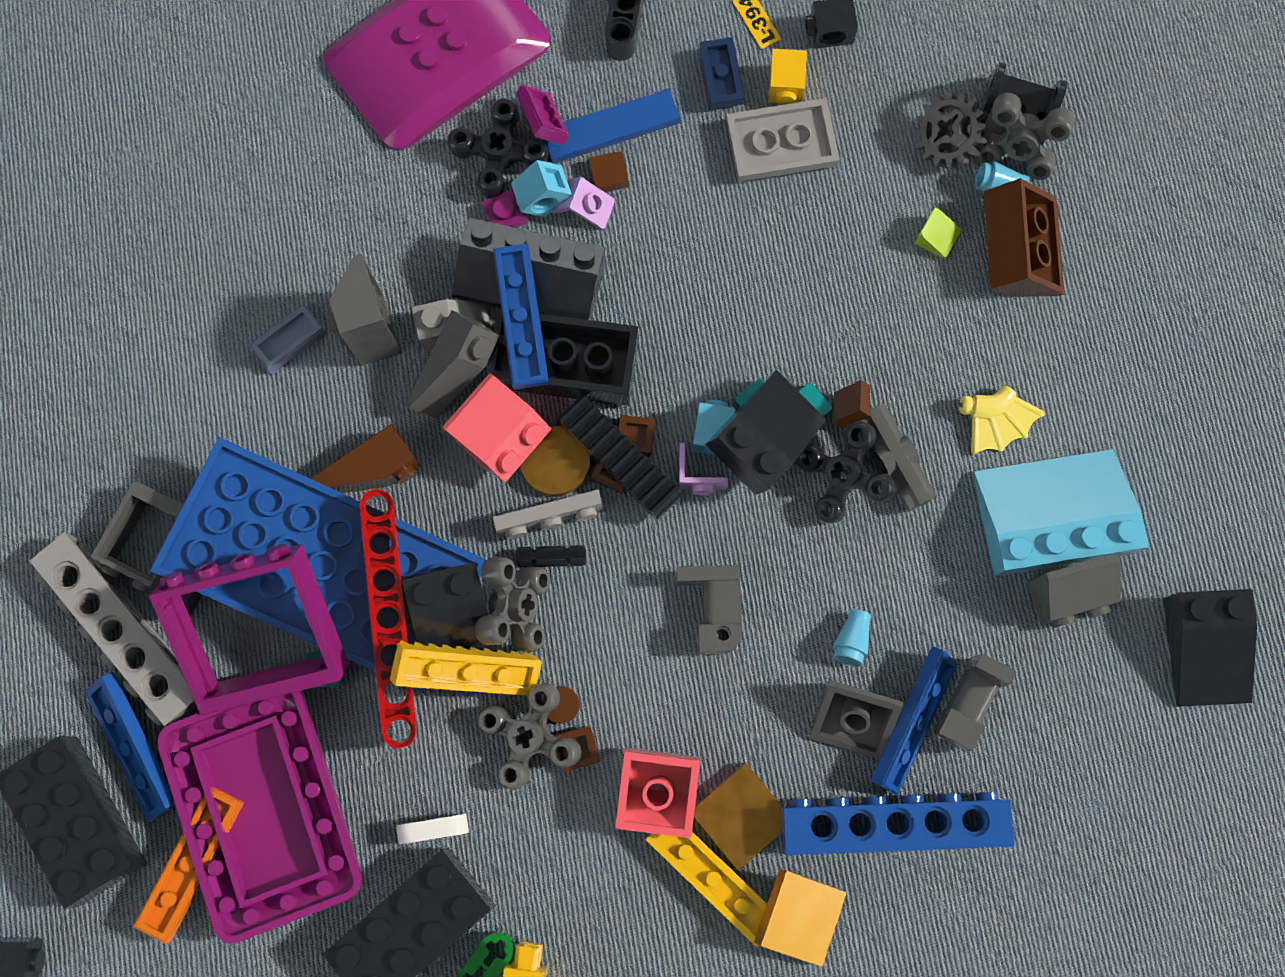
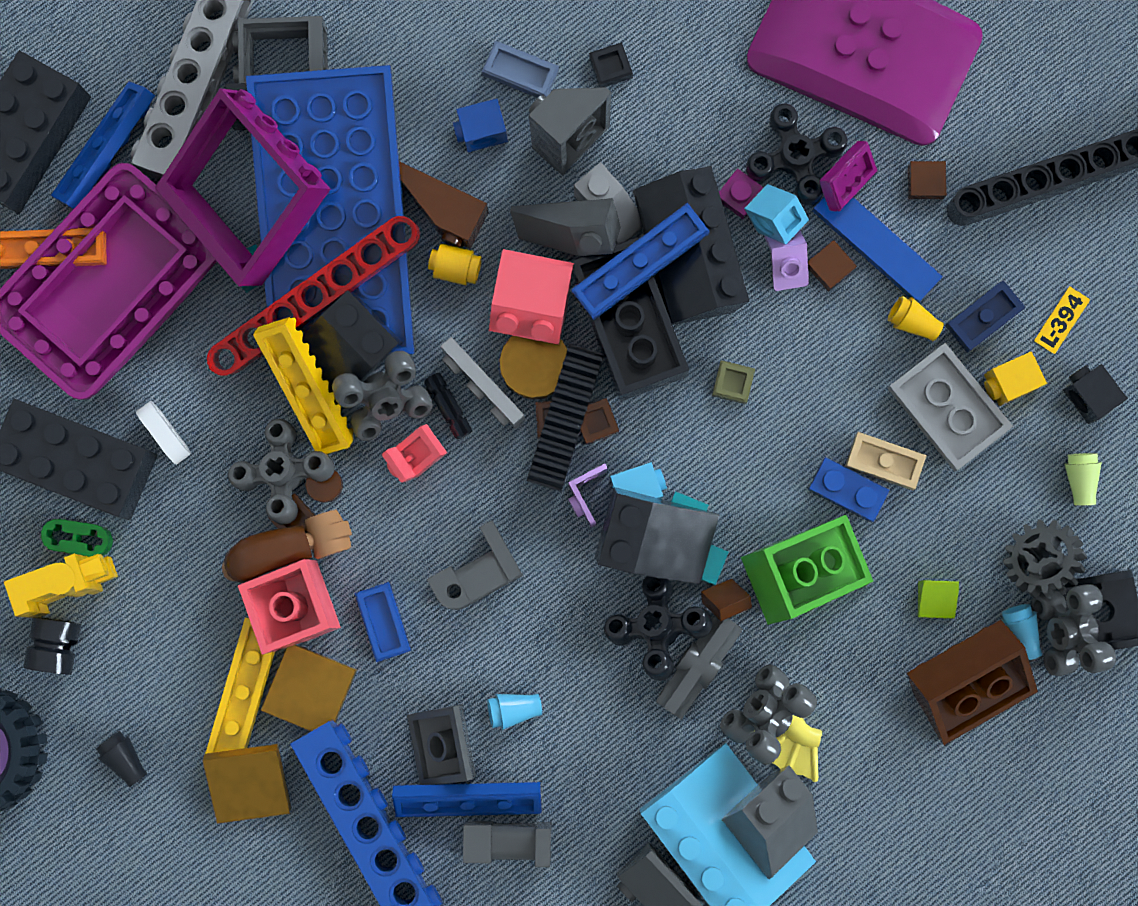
camera: 65 degrees right, 5 degrees up
(317, 395) = (480, 125): none -> blue brick
(328, 260) = (610, 65): none -> black tile
(428, 483) = (455, 264): none -> yellow brick
(579, 59) = (927, 180): none -> reddish brown tile
(579, 607) = (414, 454): none -> coral bracket
(599, 774) = (279, 547): none -> reddish brown piece
(664, 303) = (733, 382): none -> olive tile
(691, 129) = (914, 318): none -> yellow cone
(714, 716) = (383, 622): none -> blue tile
(800, 214) = (885, 461): none -> tan plate
(808, 257) = (848, 490): none -> blue plate
(860, 326) = (807, 570): none -> bright green slope
(896, 67) = (1083, 477): none -> yellowish green cone
(971, 417) = (768, 714): none -> dark grey gear
(1062, 461) = (774, 820): none -> dark grey slope

